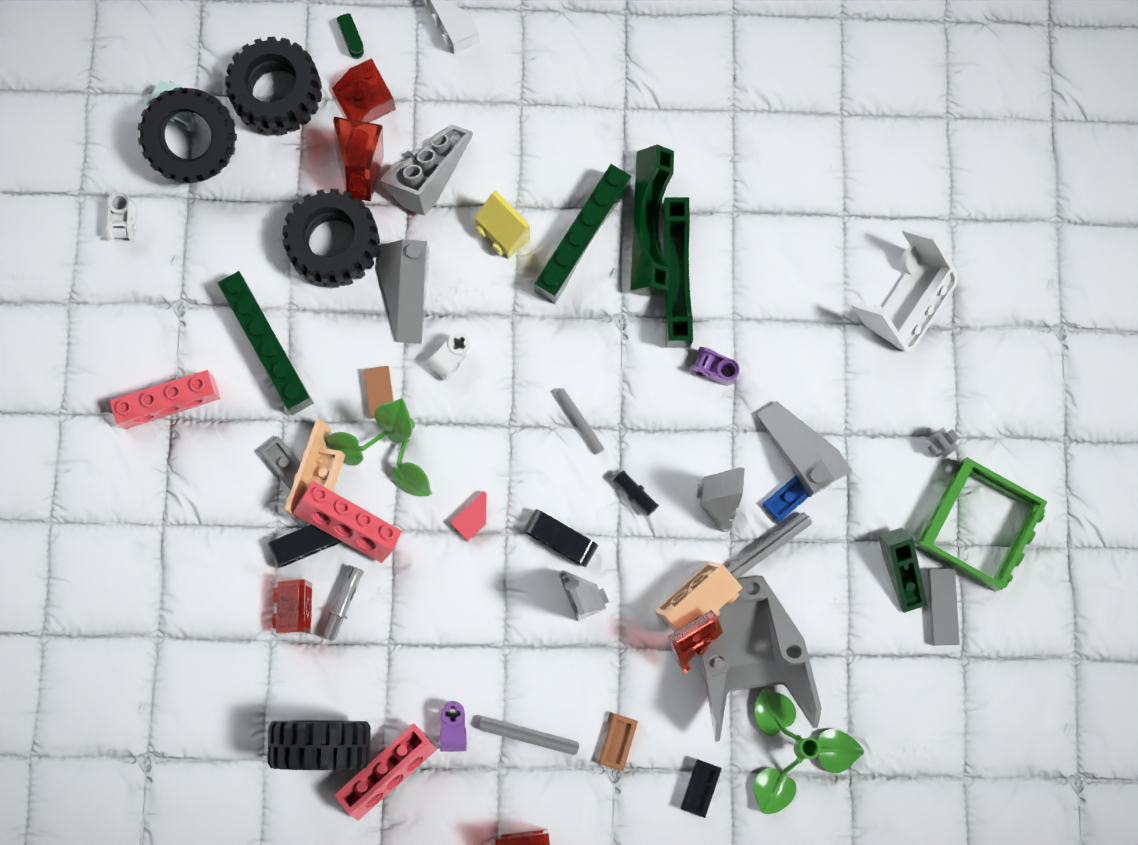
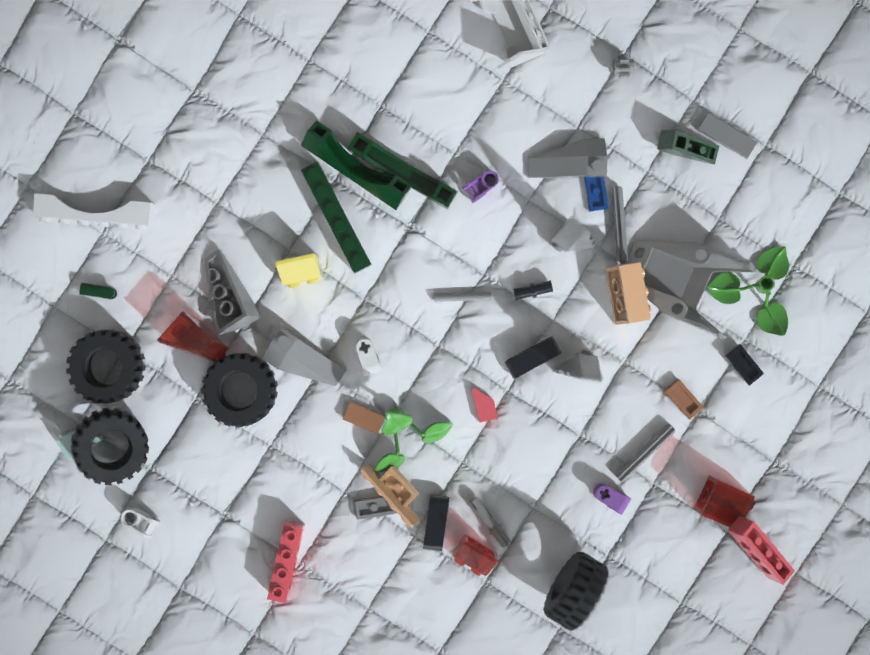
camera: 55 degrees left, 10 degrees up
(265, 343) = (287, 475): dark green arch -> none
(347, 522) = (441, 490): coral brick -> none
(363, 93) = (147, 308): clear red slope -> none
(385, 772) = (615, 556): coral brick -> none
(694, 638) = (654, 313): clear red wing -> none
(1023, 536) = (715, 54): bright green window -> none

